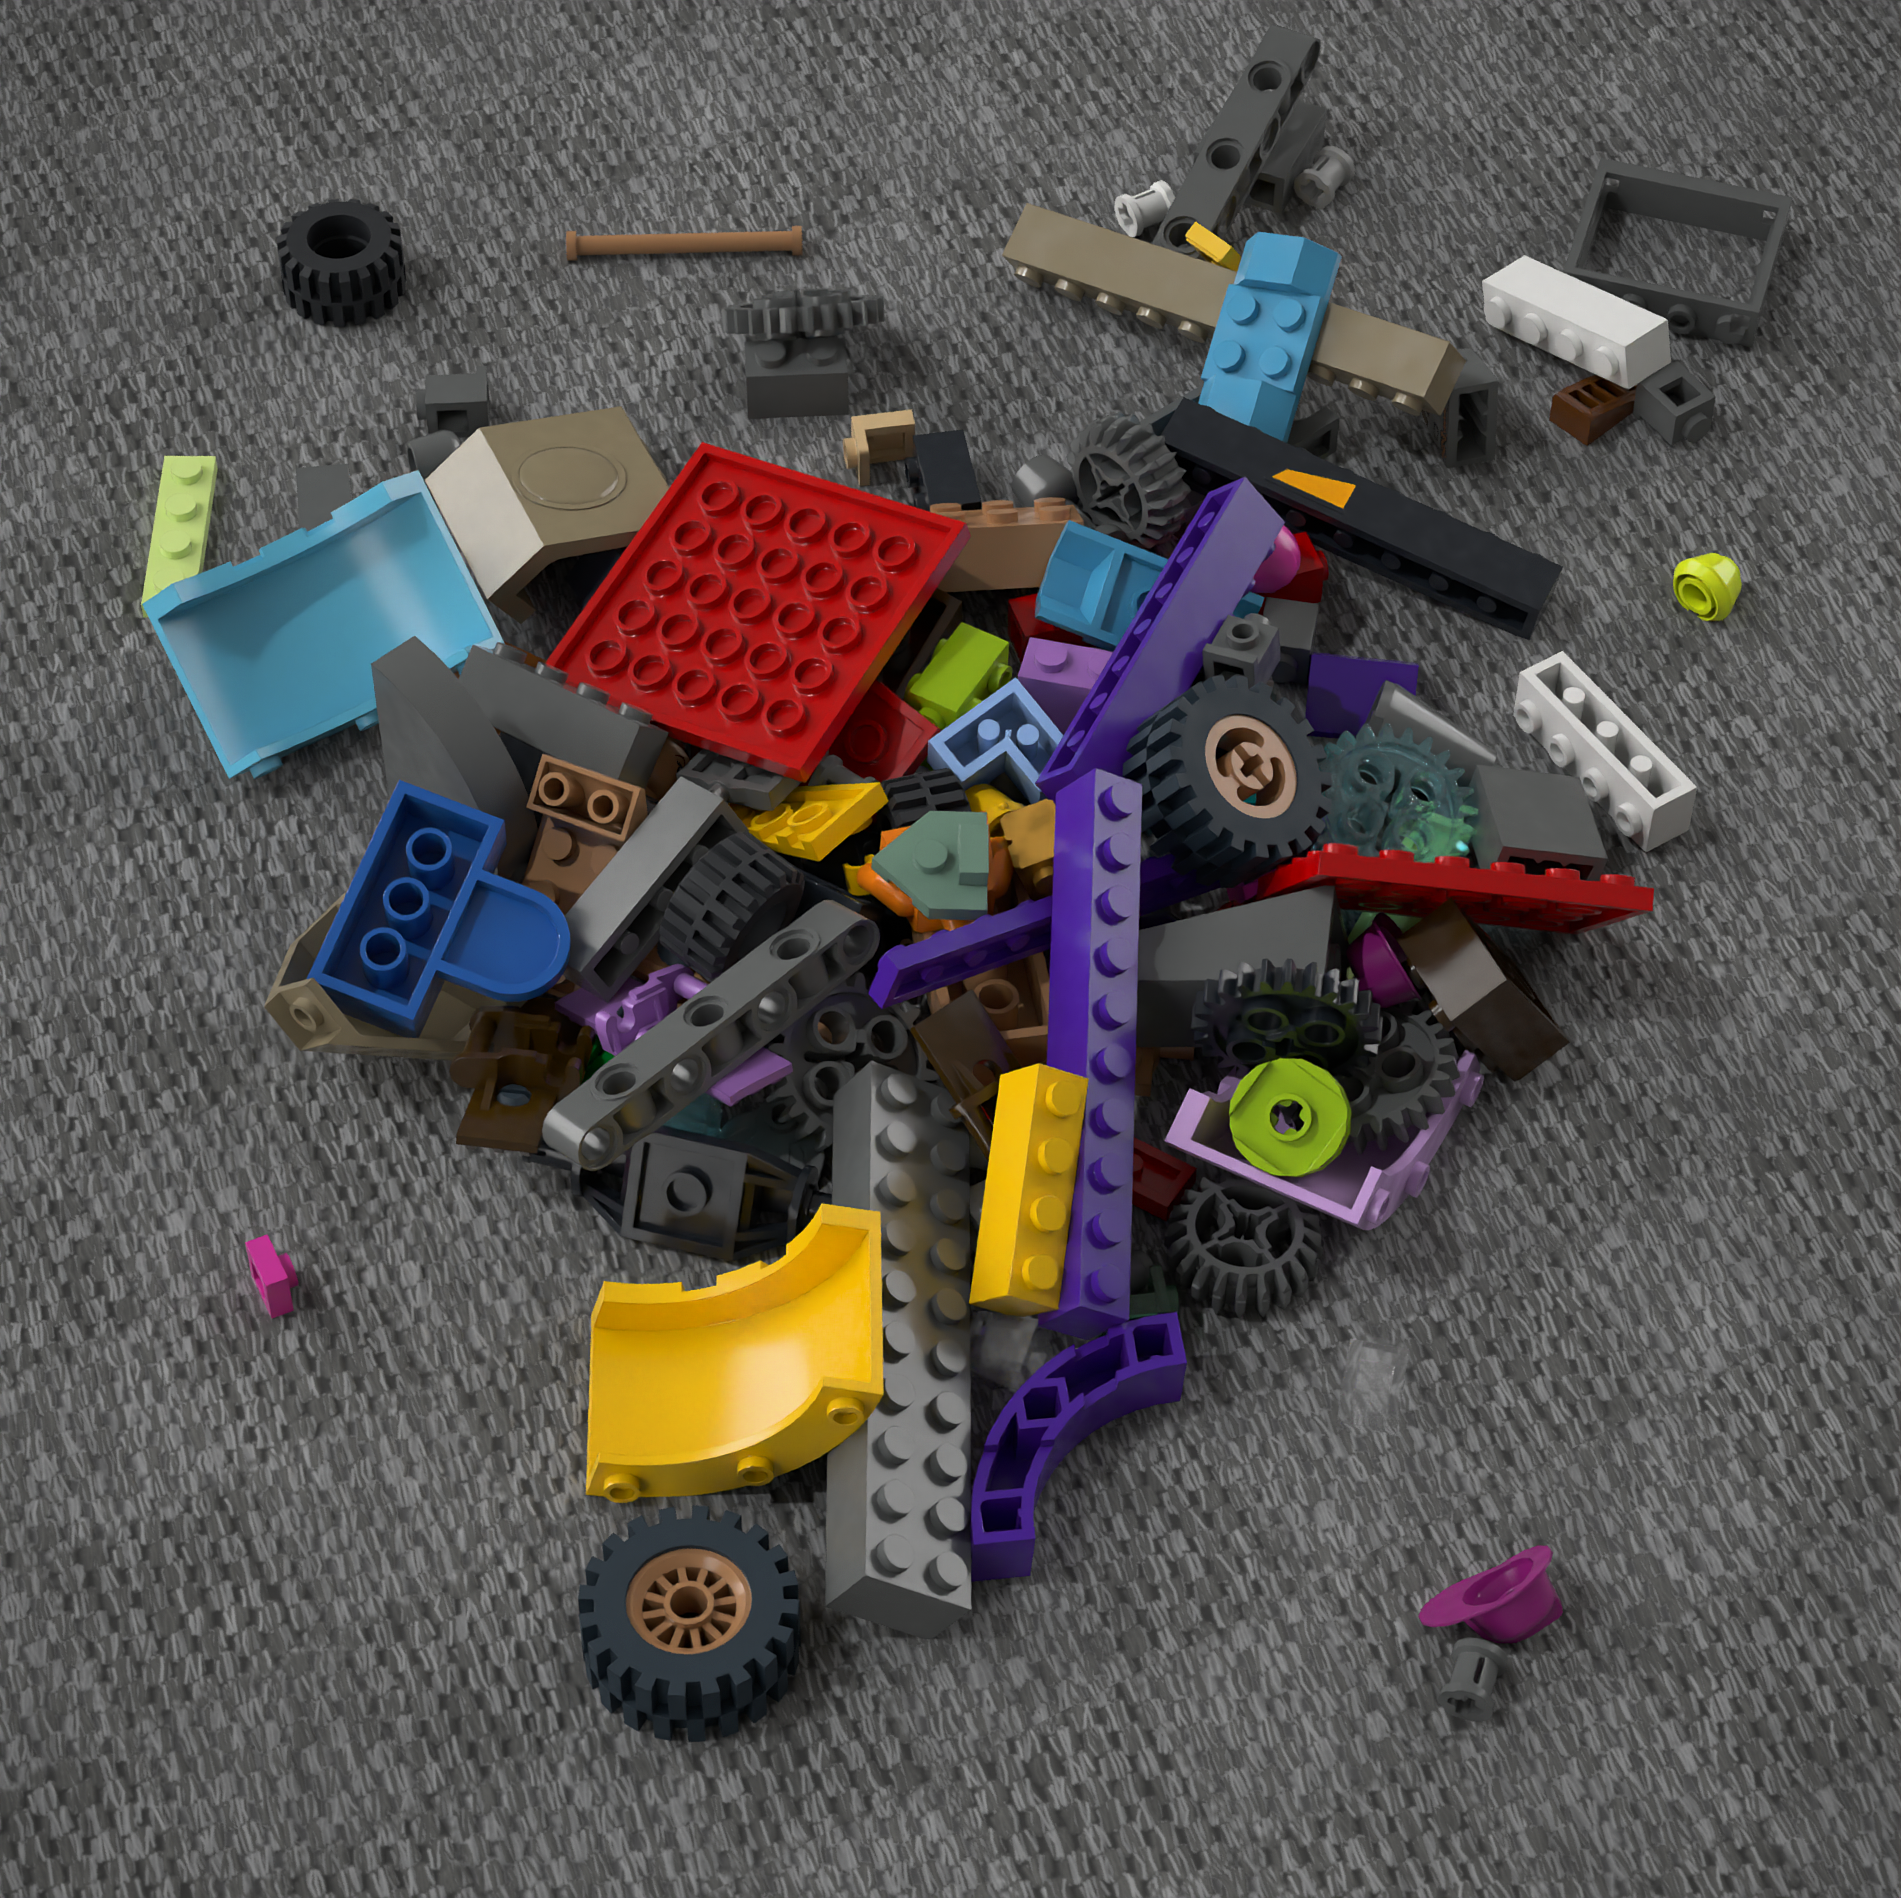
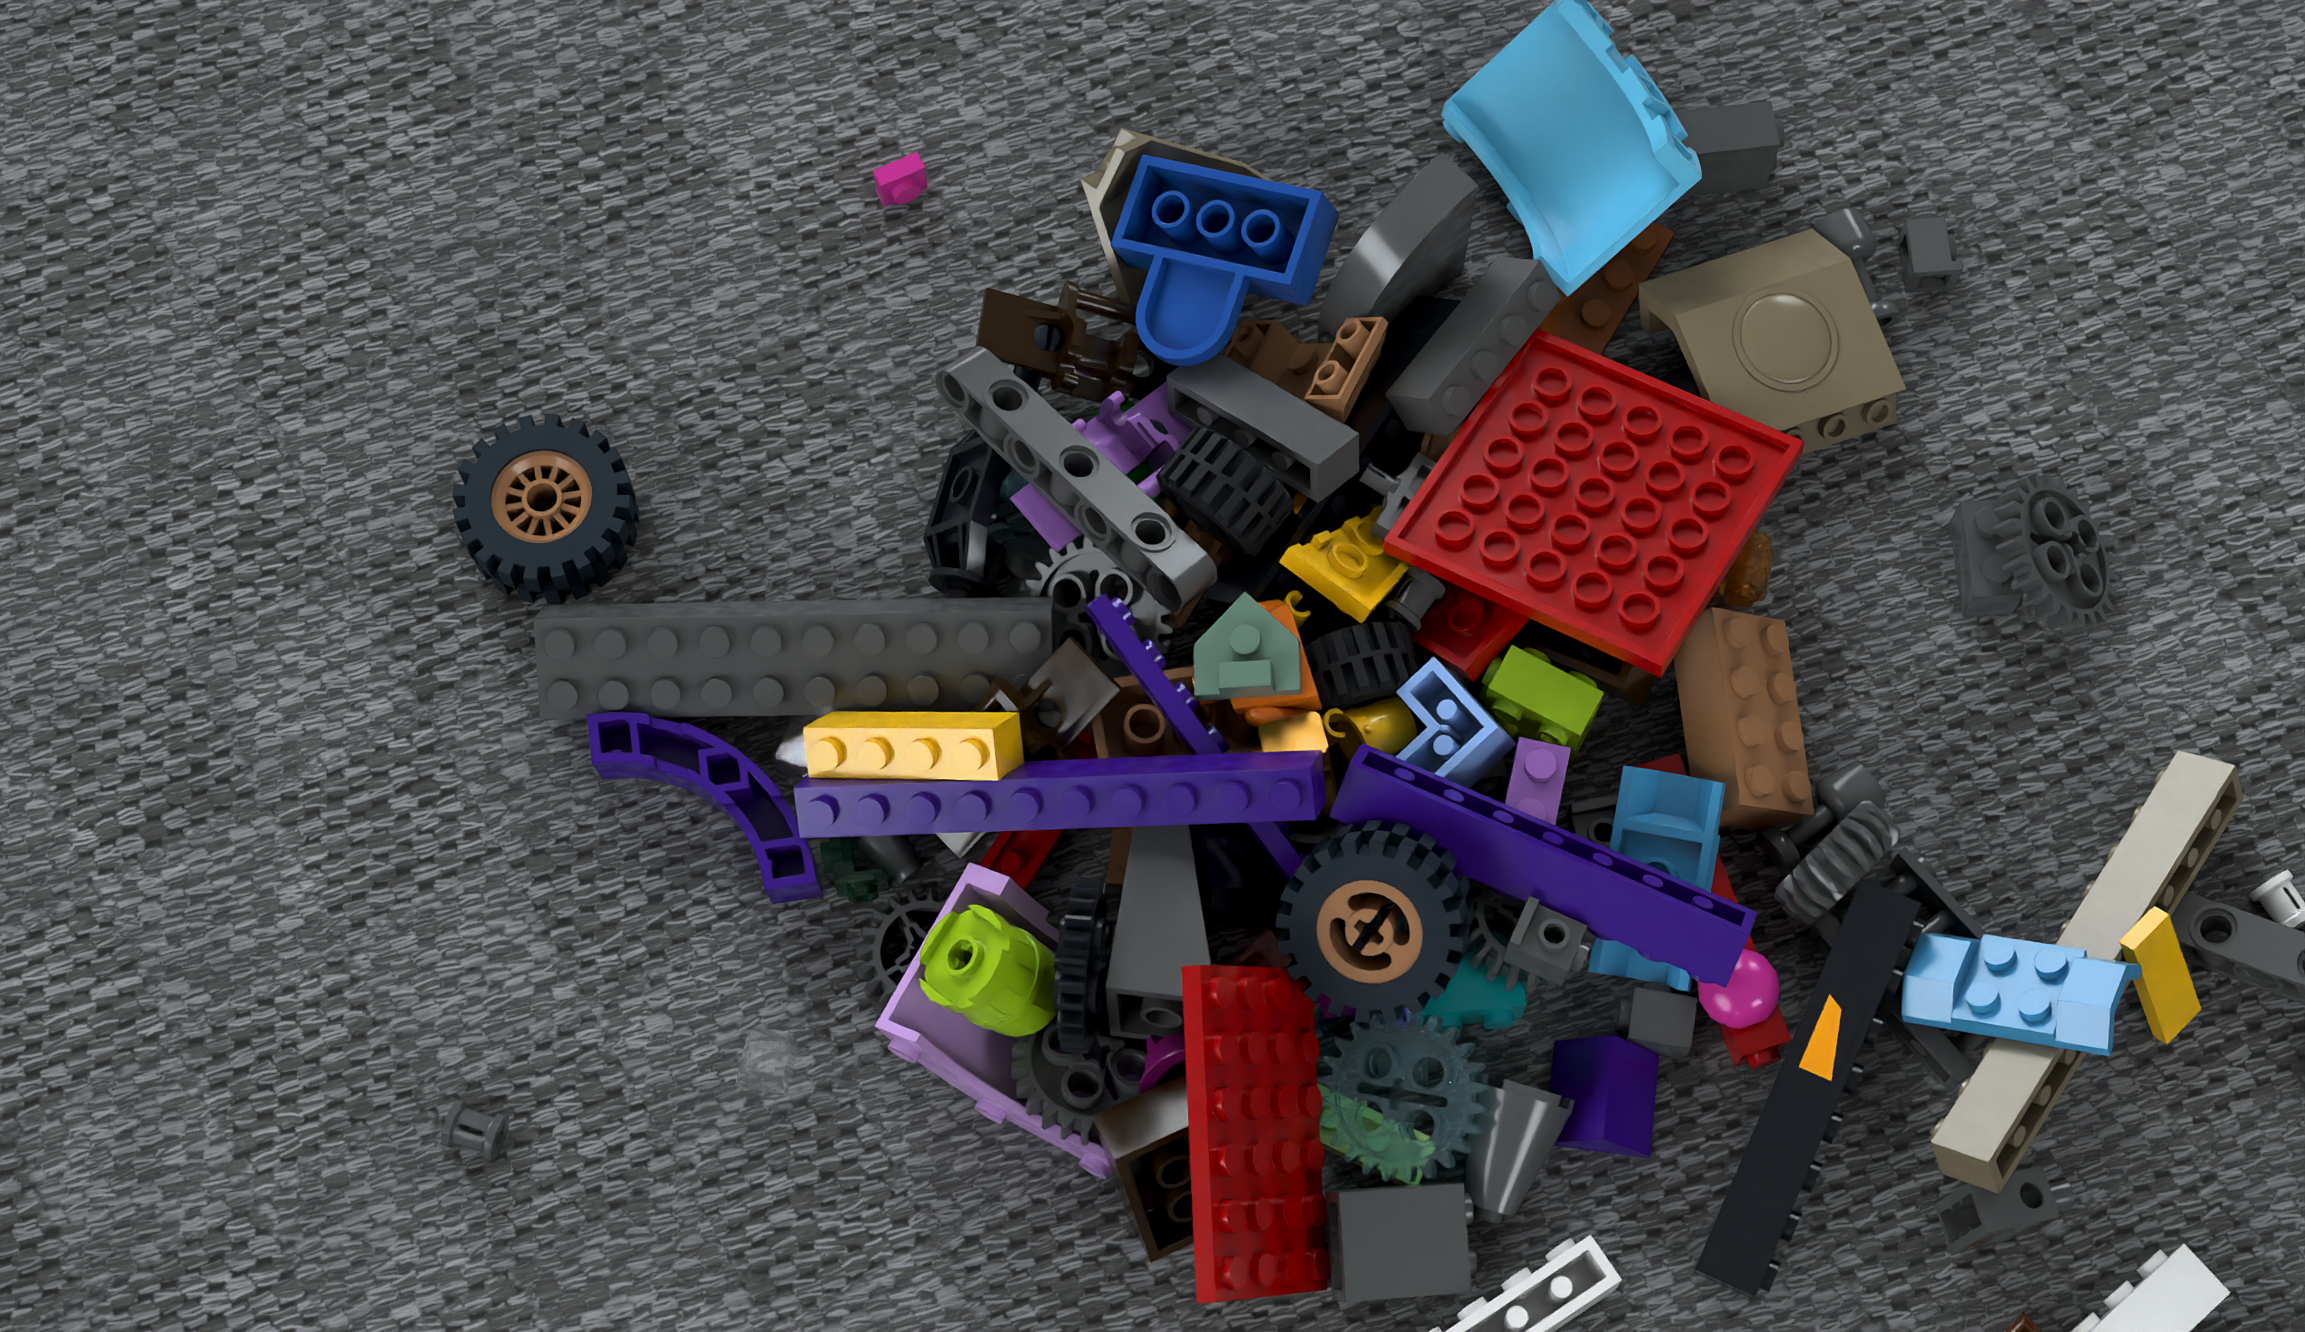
camera: 90 degrees right, 20 degrees up
(180, 522) = (1747, 37): yellowish green plate -> none
(341, 262) = (2096, 168): black tyre -> none
(683, 243) = (2172, 354): medium nougat bar -> none
(737, 1374) = (775, 524): yellow panel -> none
(878, 439) = (1915, 642): tan bracket -> none
(942, 471) = (1854, 700): black brick -> none
(1500, 1602) = (547, 1148): magenta piece -> none

